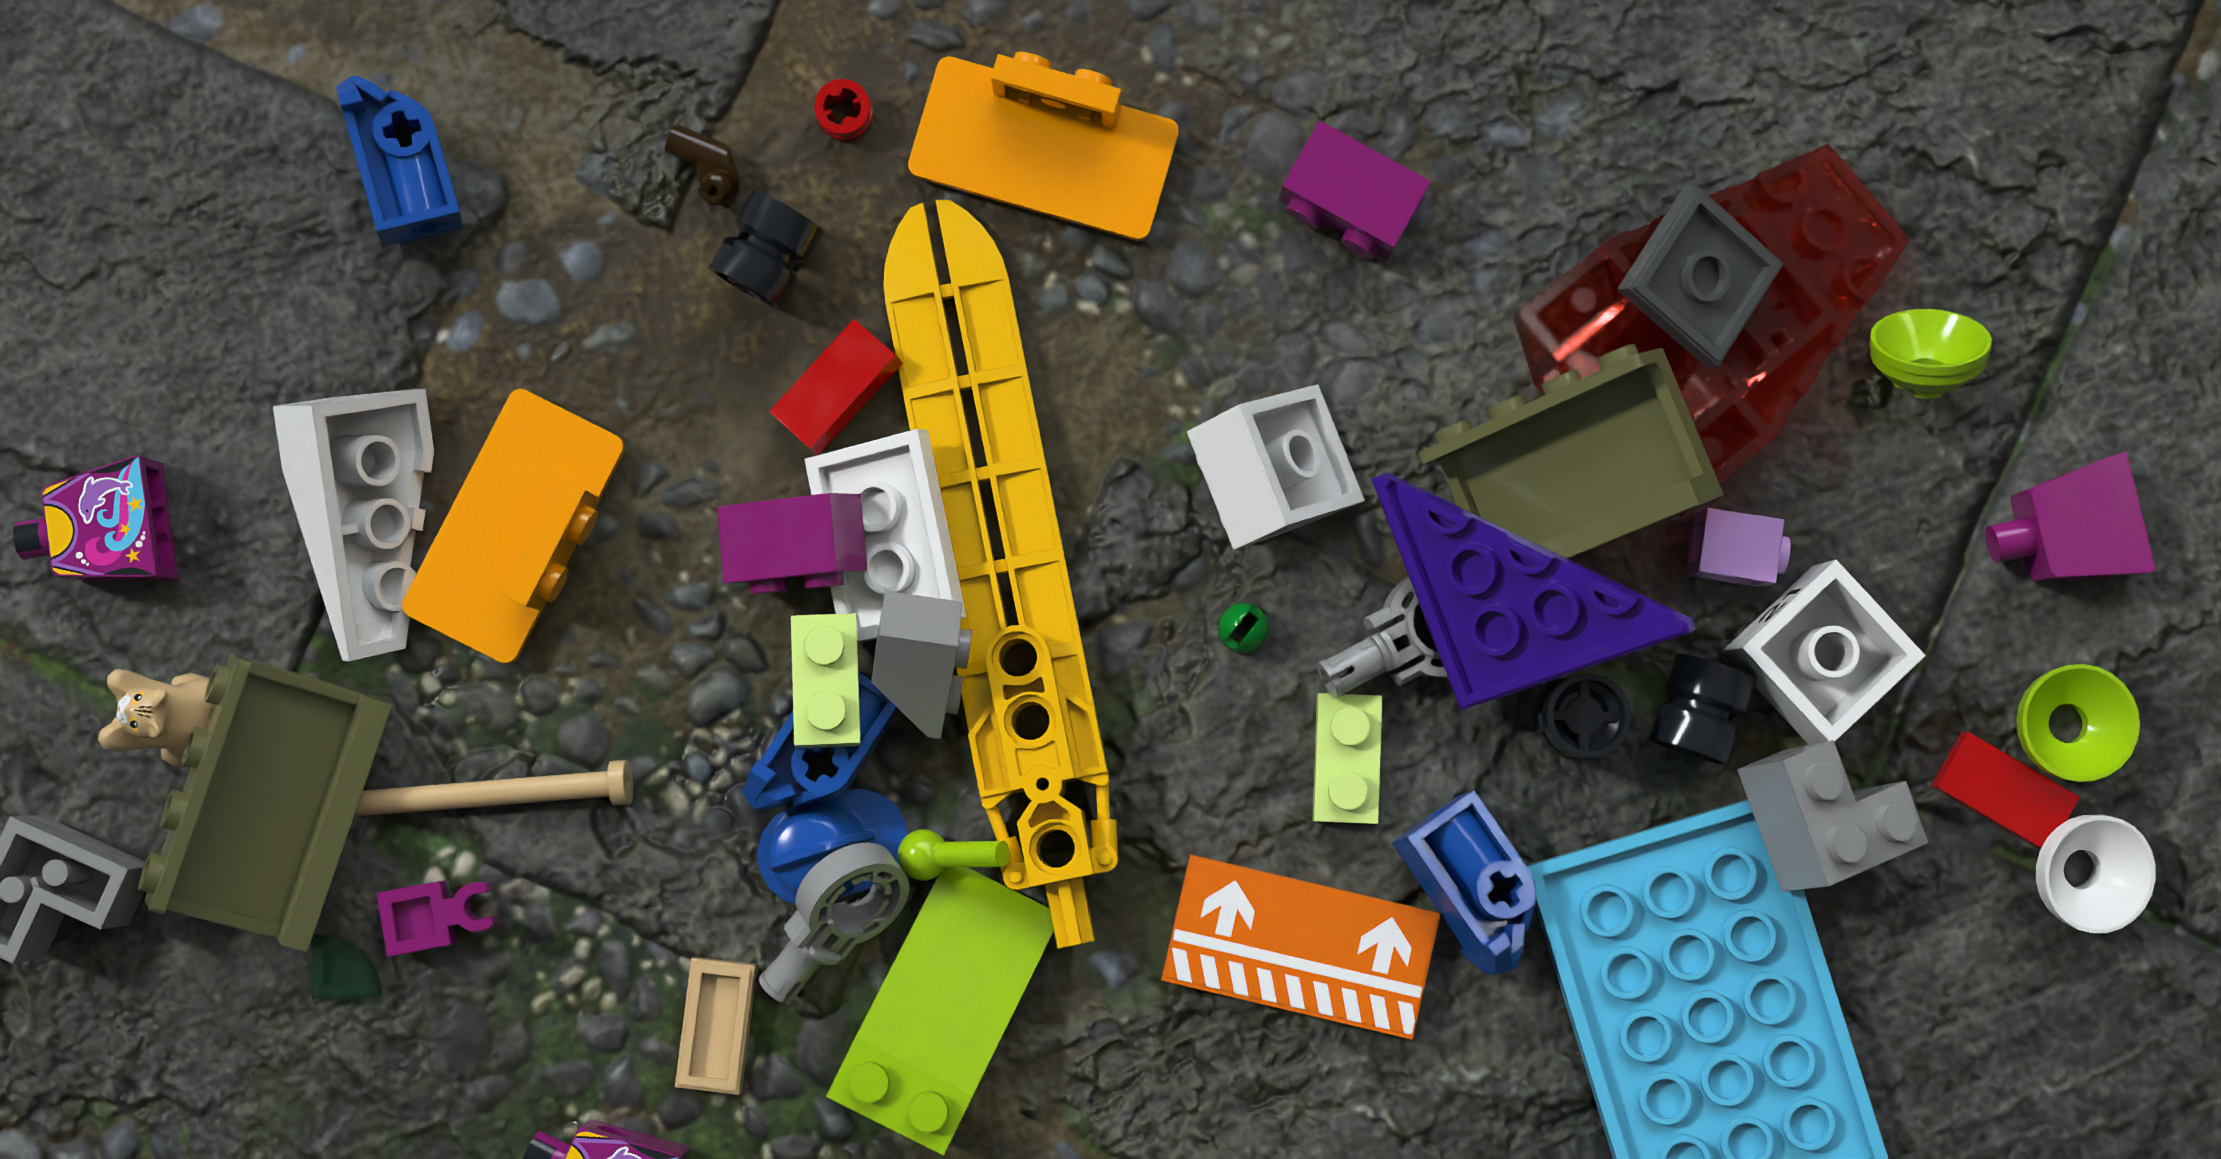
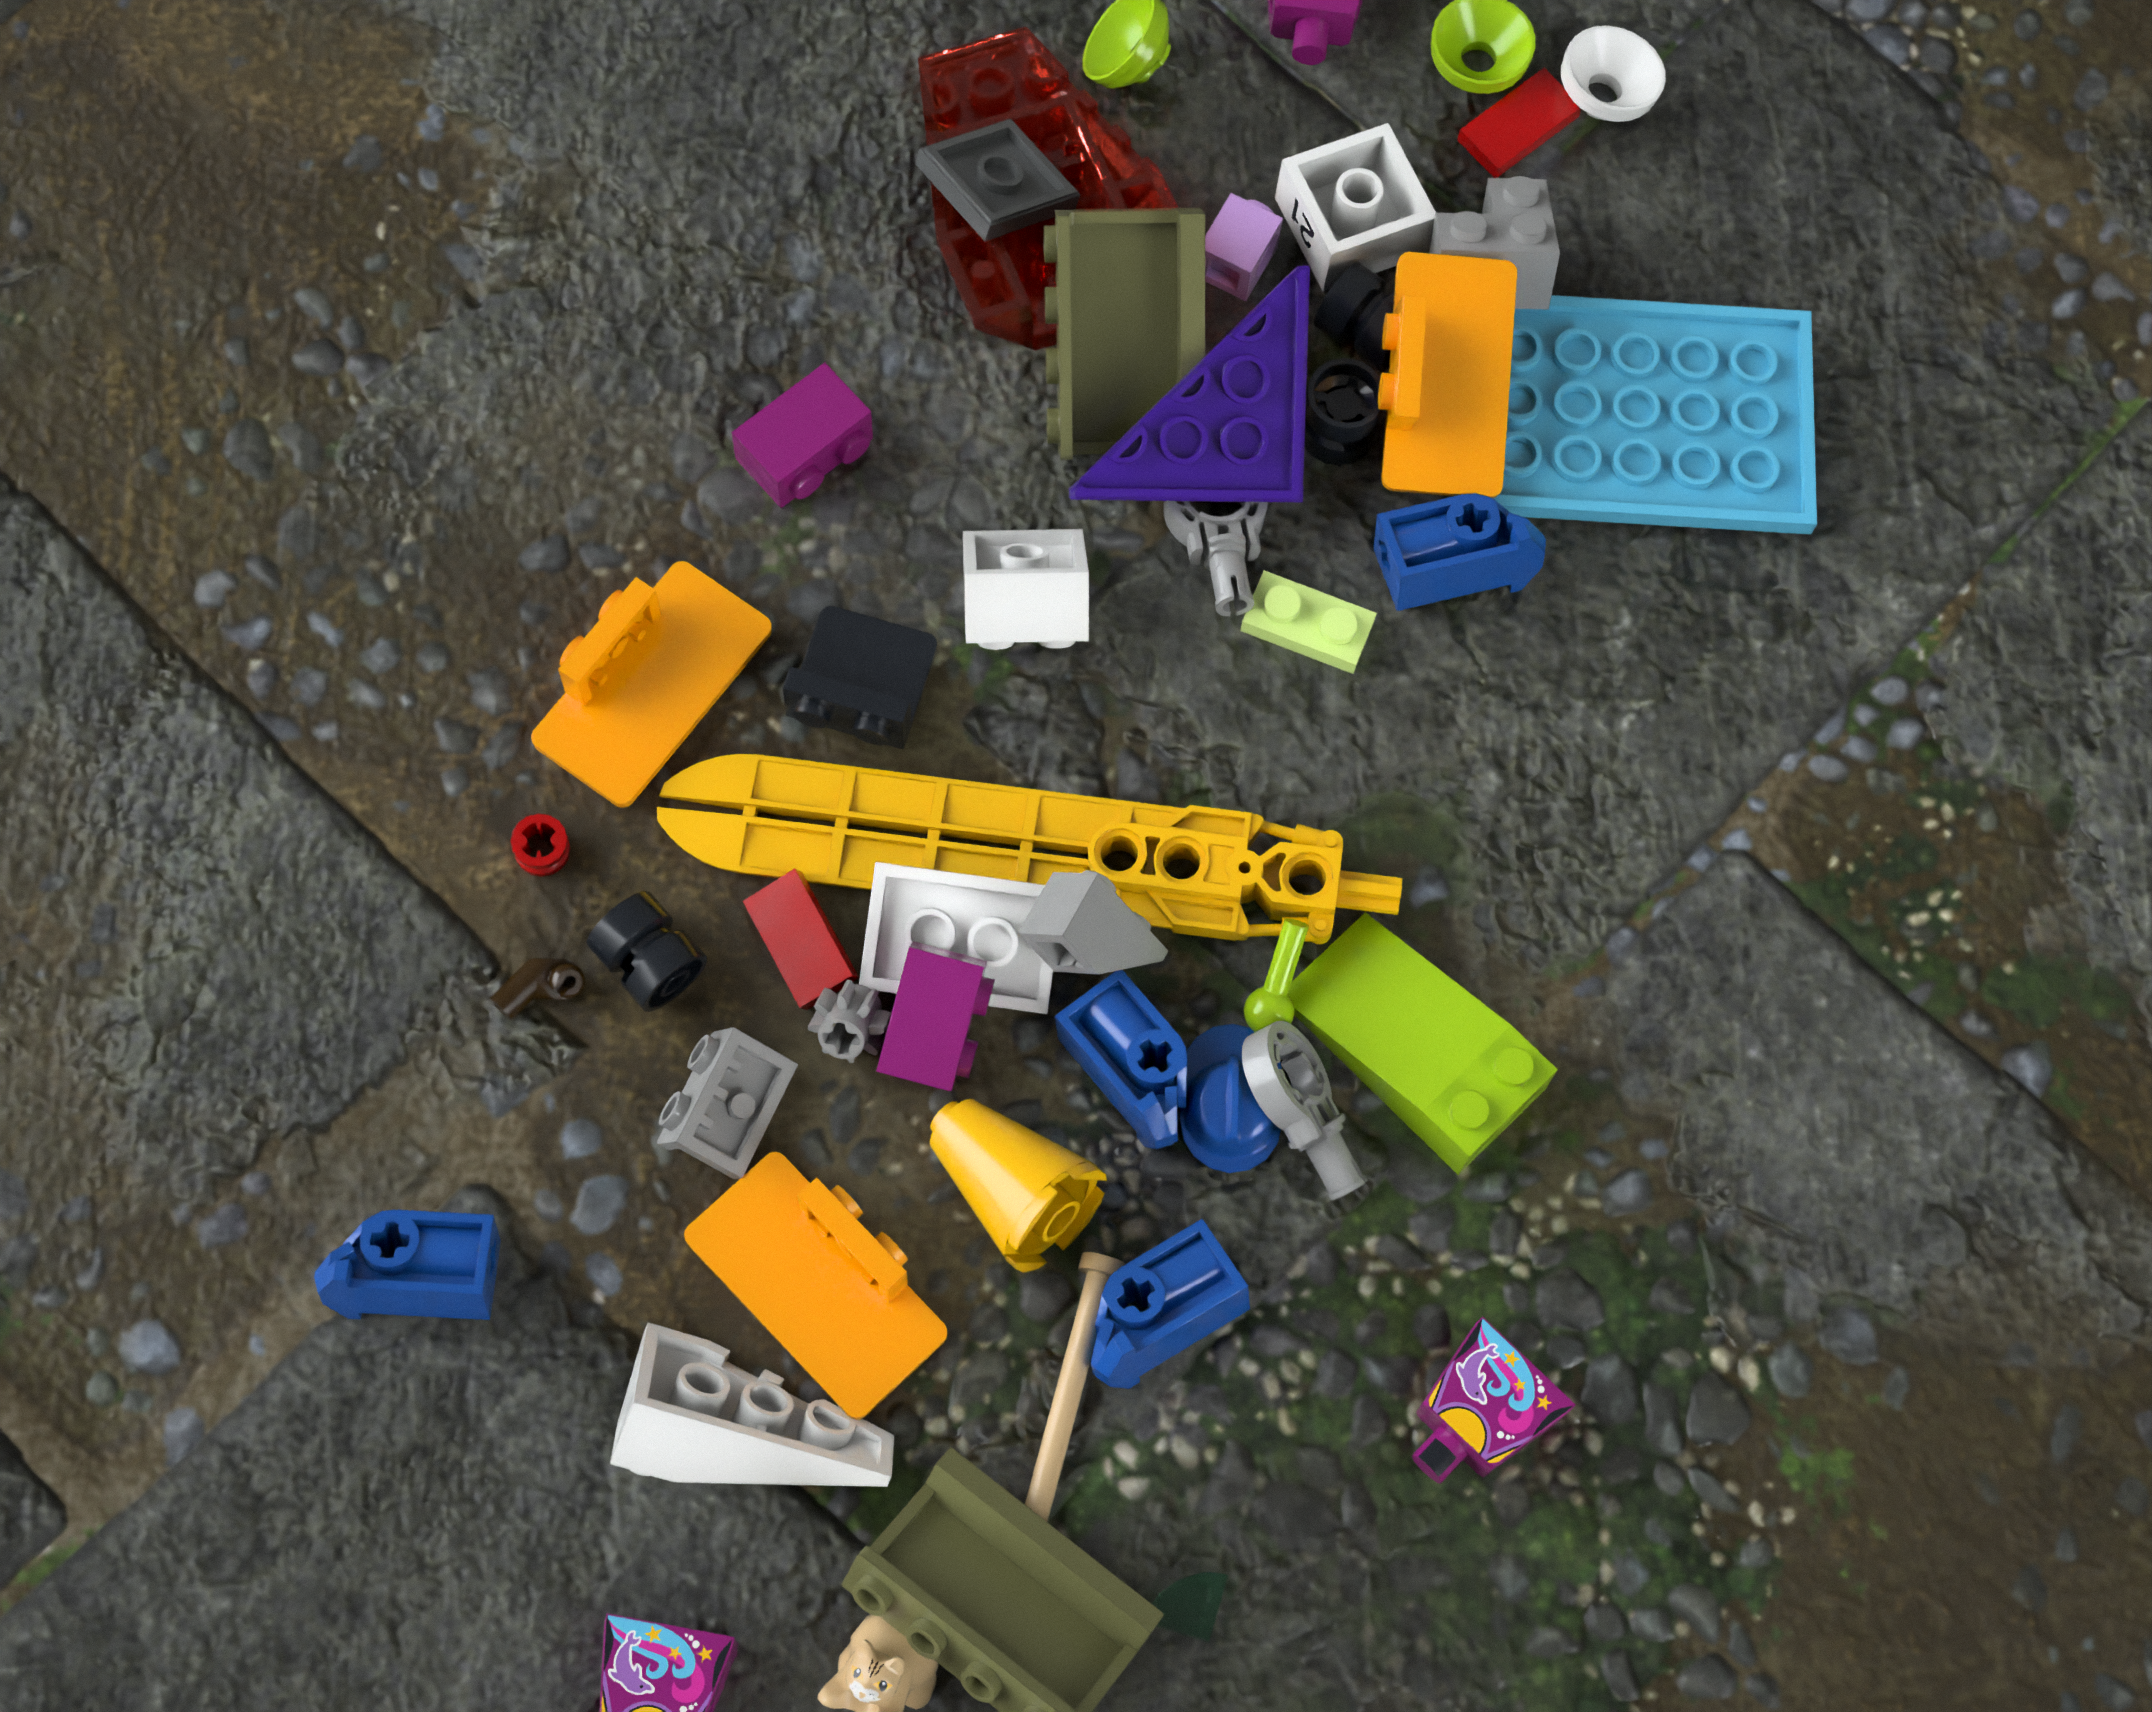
camera: 80 degrees left, 15 degrees down
(426, 916) = (1166, 1498): magenta plate -> none
(618, 872) = (1189, 1295): none -> blue piece
(652, 378) = (726, 1100): none -> light grey bracket
(664, 671) = (1016, 1181): none -> yellow cone
(716, 1025) = (1364, 1260): tan tile -> none
(766, 463) = (850, 1021): none -> light grey gear
(825, 680) = (1080, 1022): yellowish green plate -> none
(1119, 344) = (861, 677): none -> black bracket
(1232, 618) = (1149, 673): green hinge -> none
(1300, 946) = (1462, 719): orange tile -> none
(1652, 812) = (1447, 374): none -> light orange bracket

